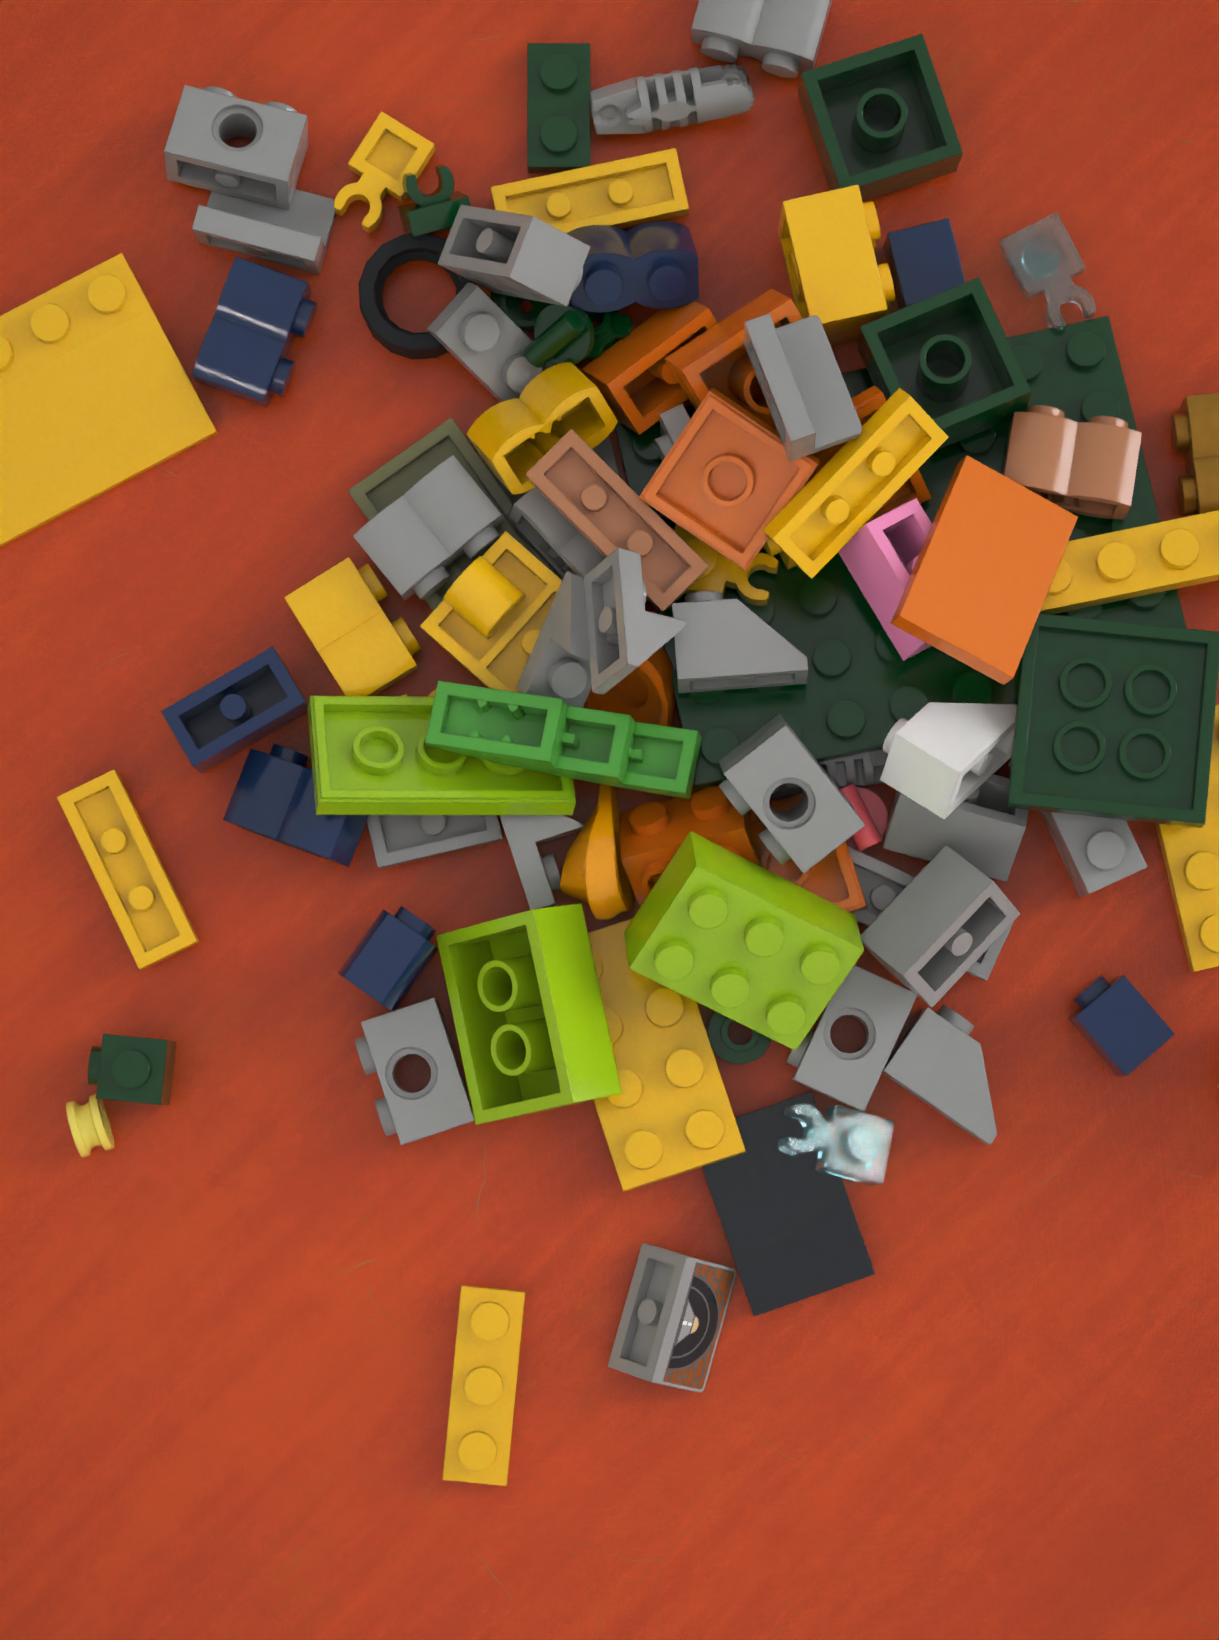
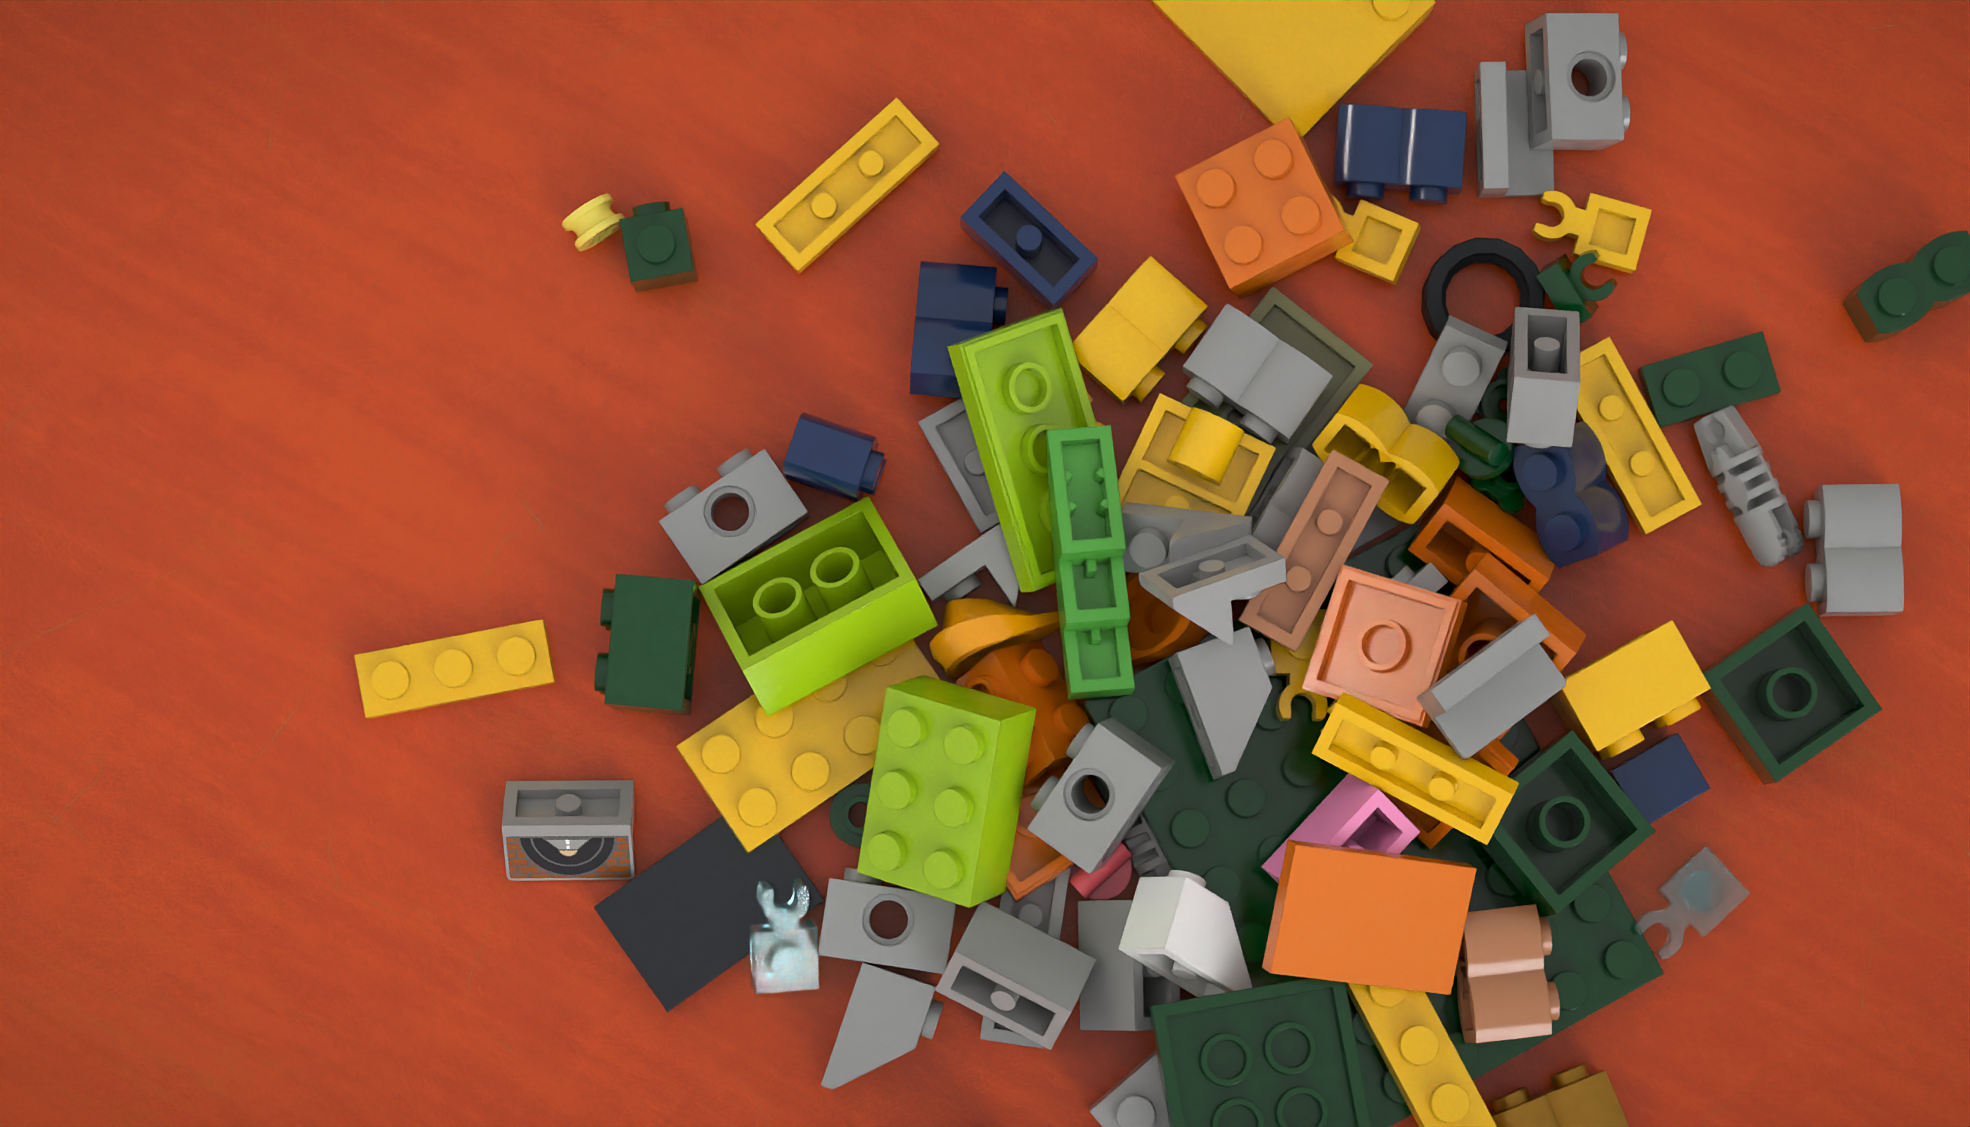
camera: 70 degrees right, 0 degrees up
(270, 475) = (1264, 208): none -> orange brick
(330, 384) = (1380, 239): none -> yellow plate
(517, 1187) = (650, 644): none -> dark green brick

